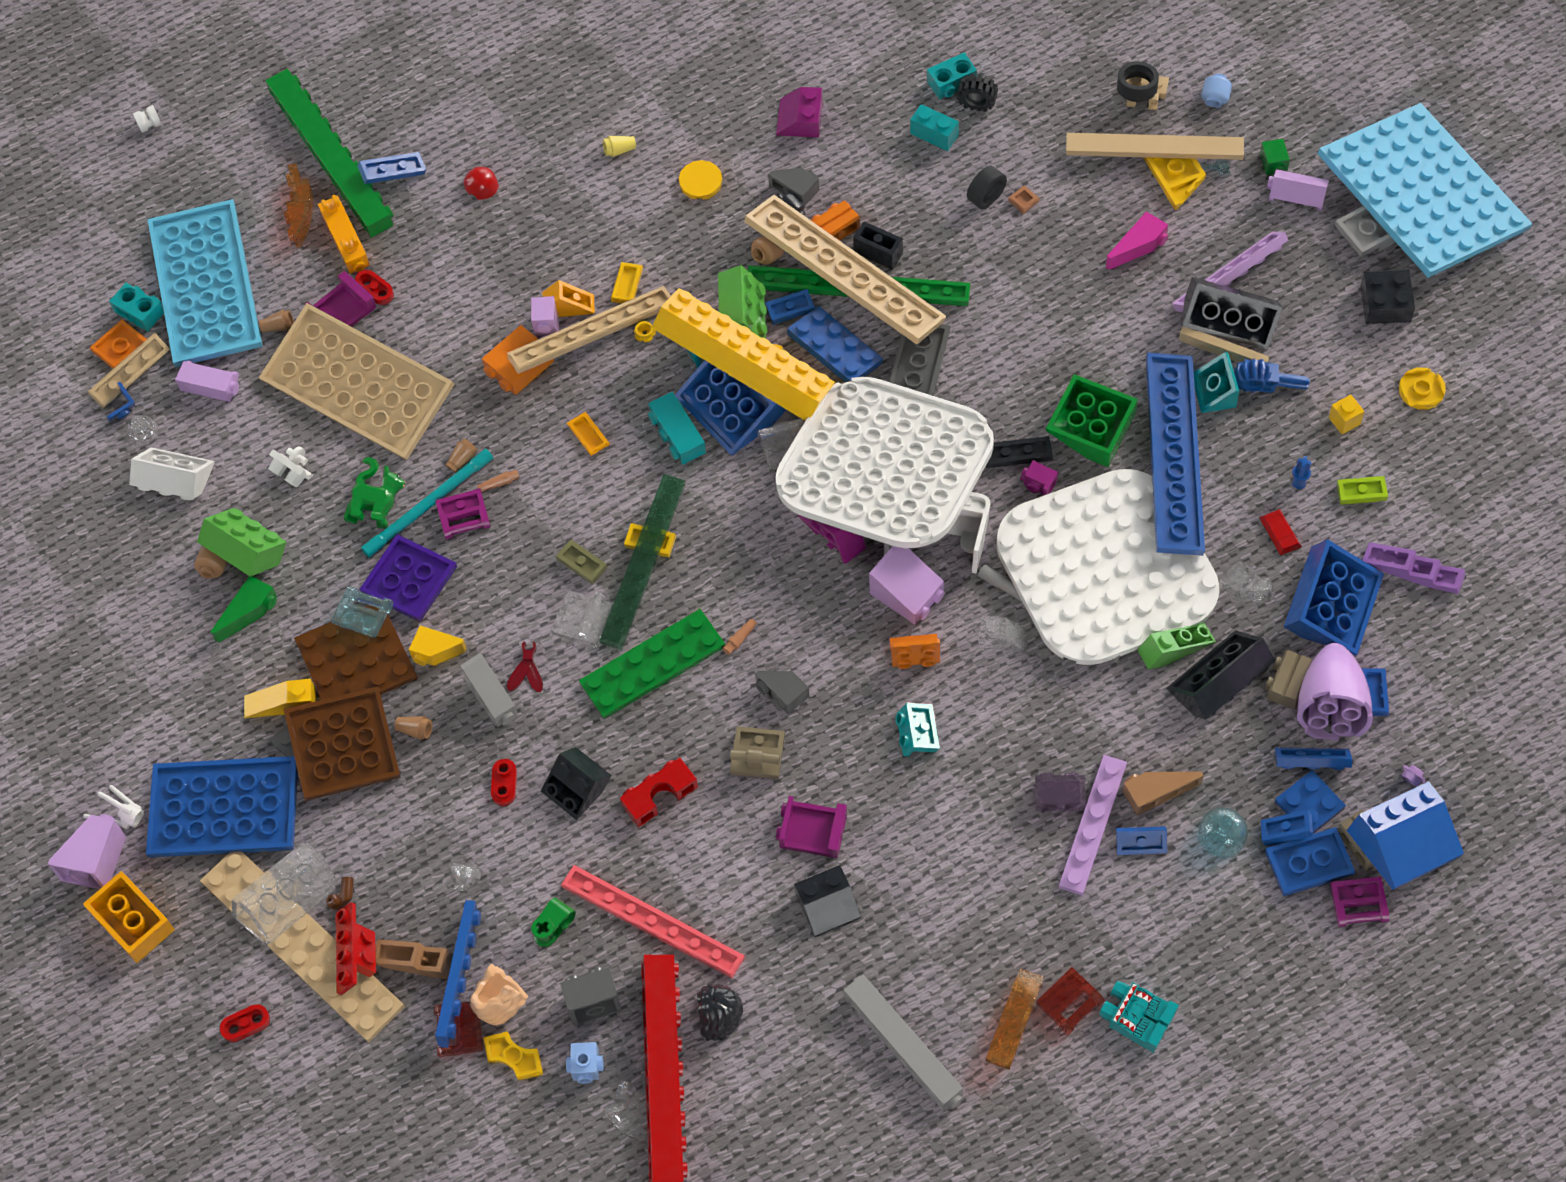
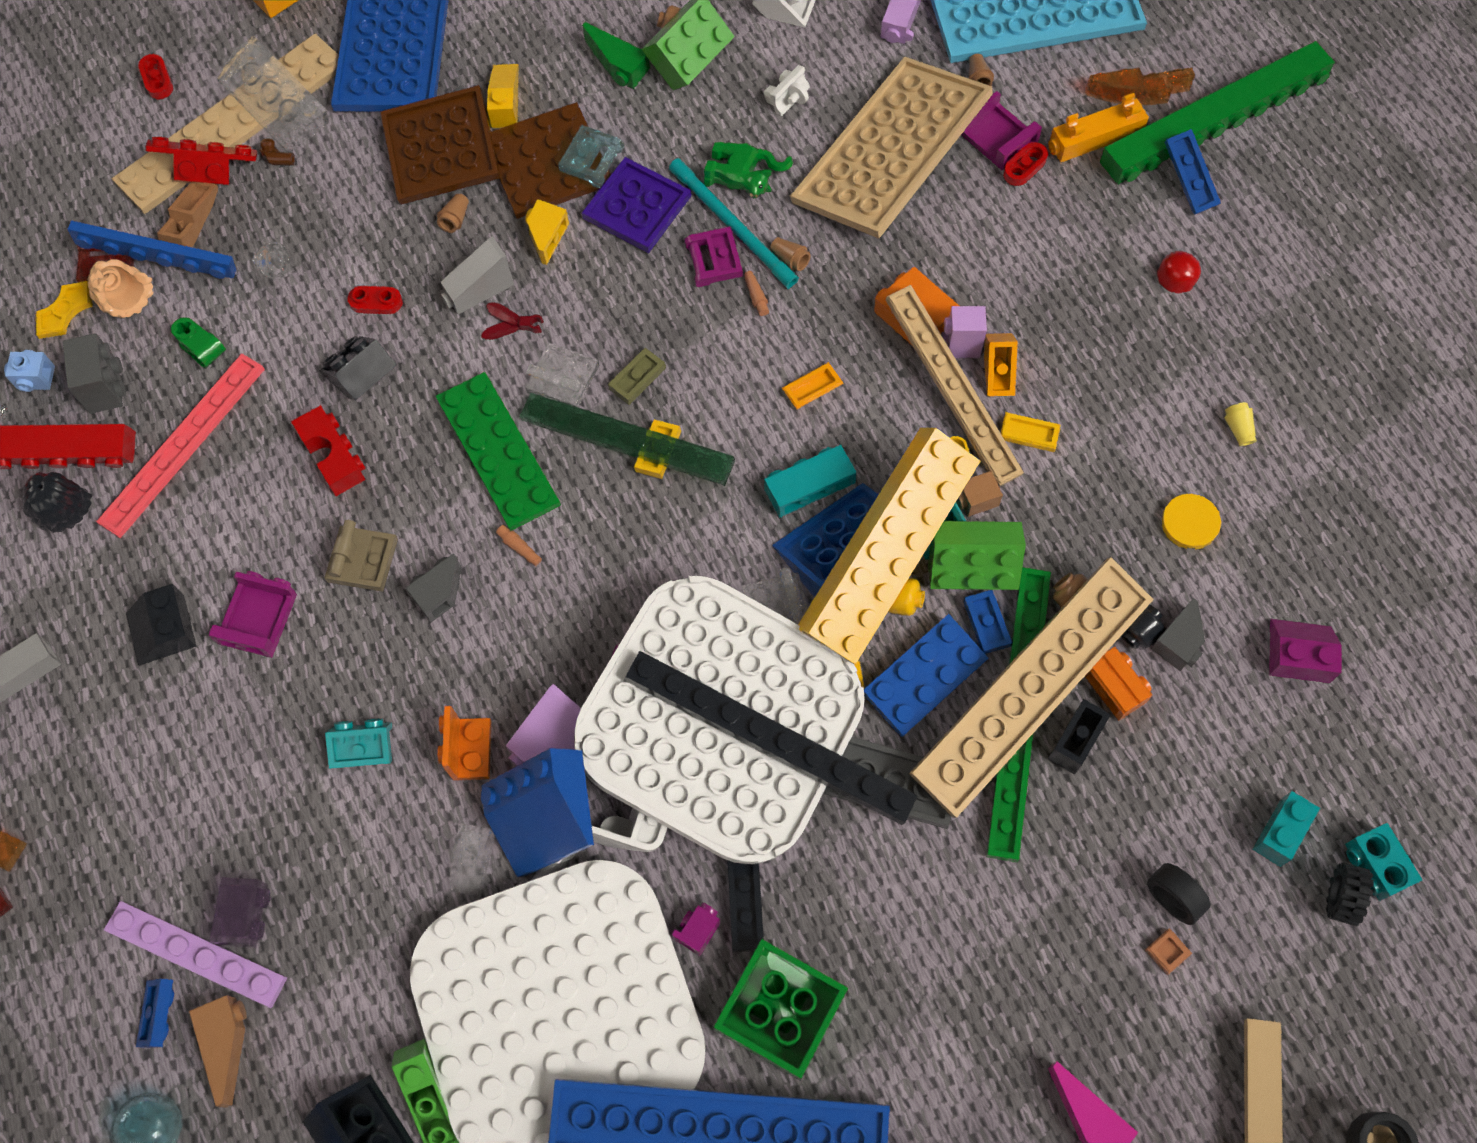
camera: 90 degrees right, 5 degrees up
(899, 428) = (771, 738): none -> black plate
(969, 573) = (540, 810): none -> blue slope

